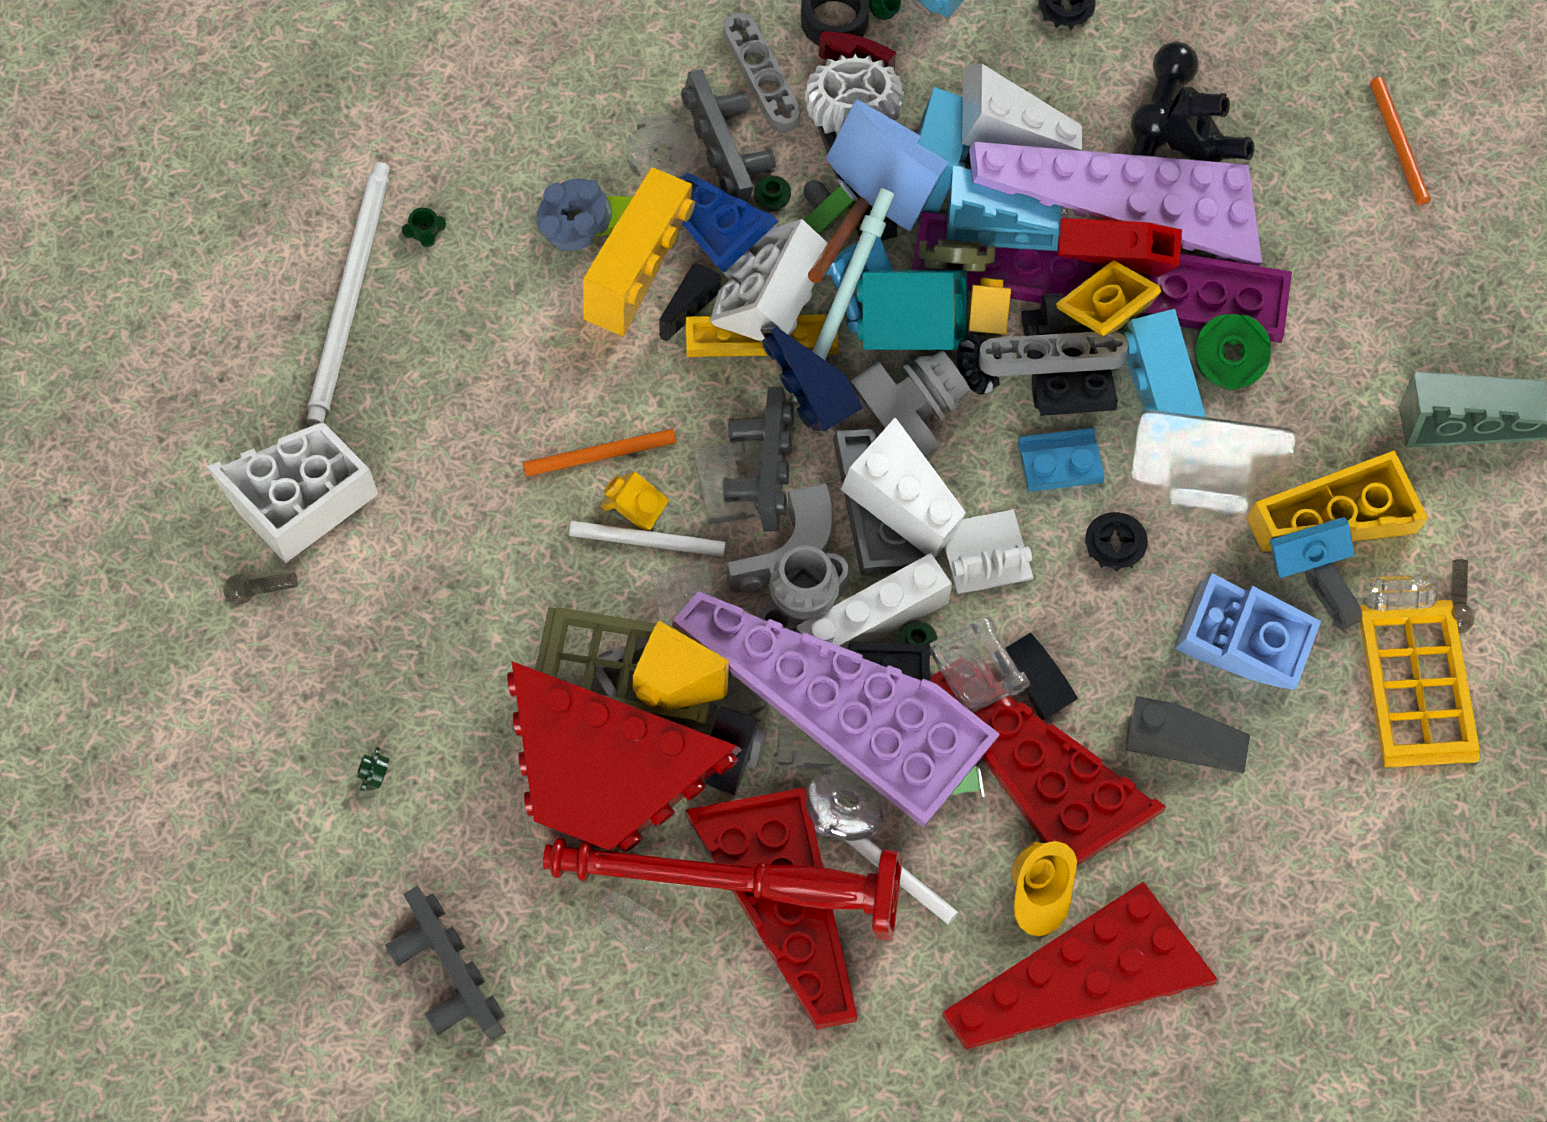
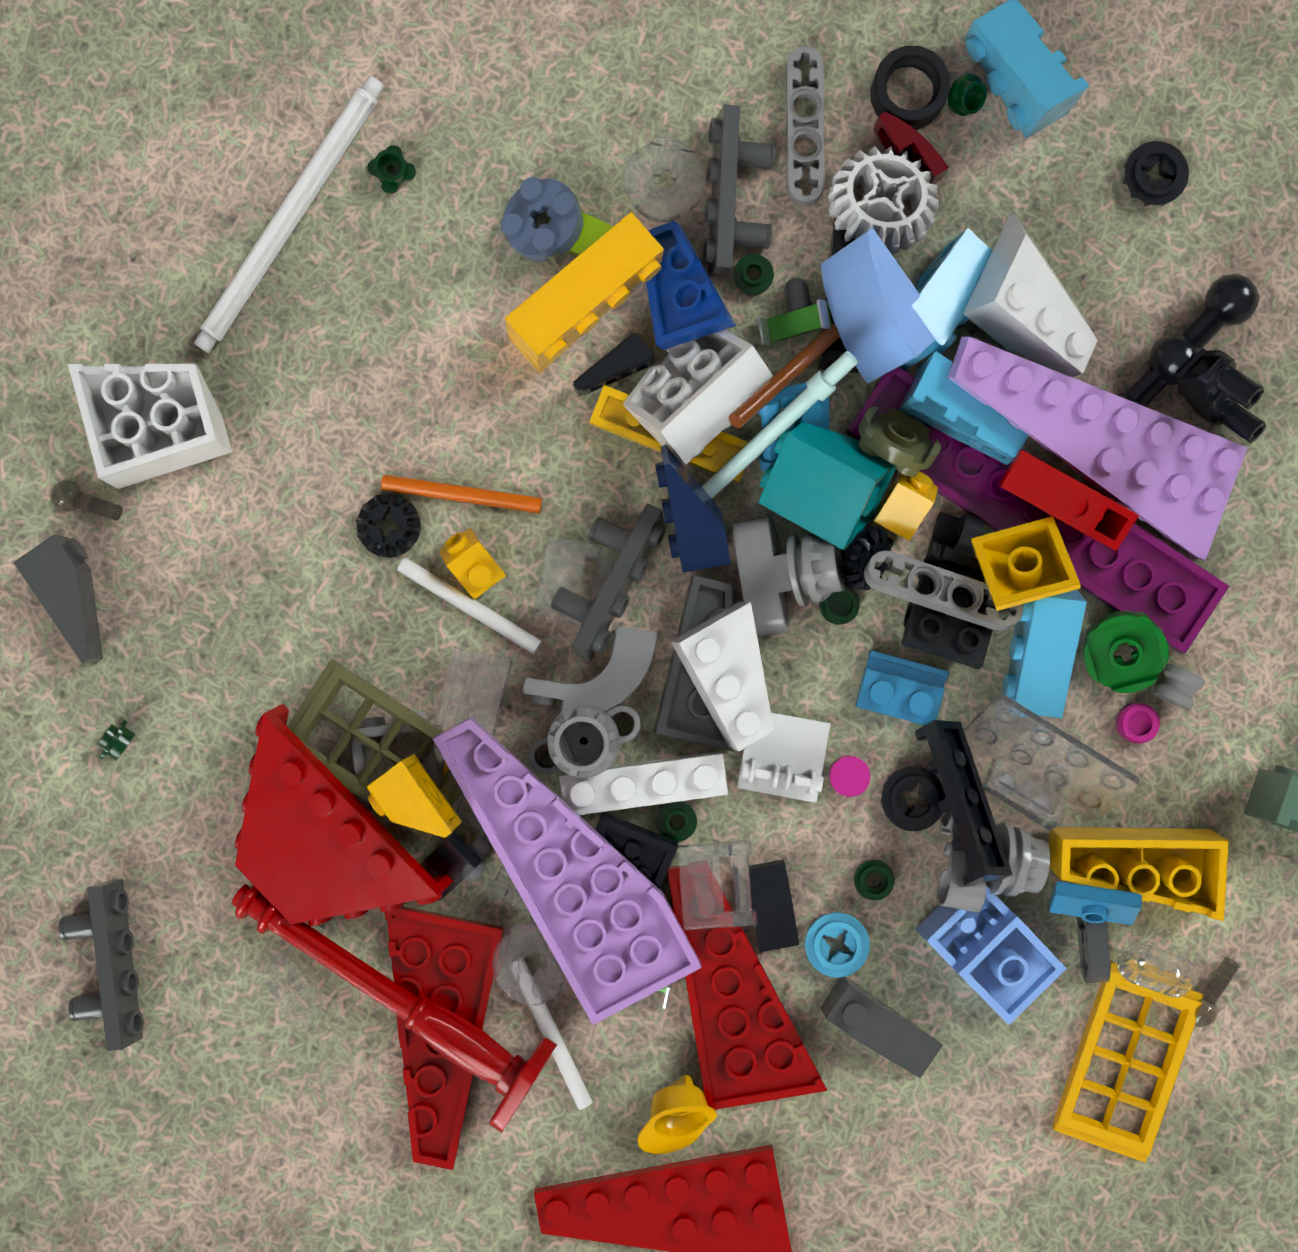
camera: 25 degrees right, 25 degrees up
(265, 653) = (66, 591): none -> dark grey slope
(533, 513) = (399, 540): none -> black gear
(973, 413) = (840, 606): none -> dark green plate
(1051, 546) = (849, 776): none -> dark pink tile
(1122, 611) = (886, 883): none -> dark green plate
(1125, 677) = (840, 963): none -> medium azure gear
(1157, 507) = (966, 802): none -> black hinge
(1197, 554) = (1027, 858): none -> light grey beam
(1276, 409) = (1137, 723): none -> dark pink tile
(1293, 364) = (1178, 687): none -> light grey wheel

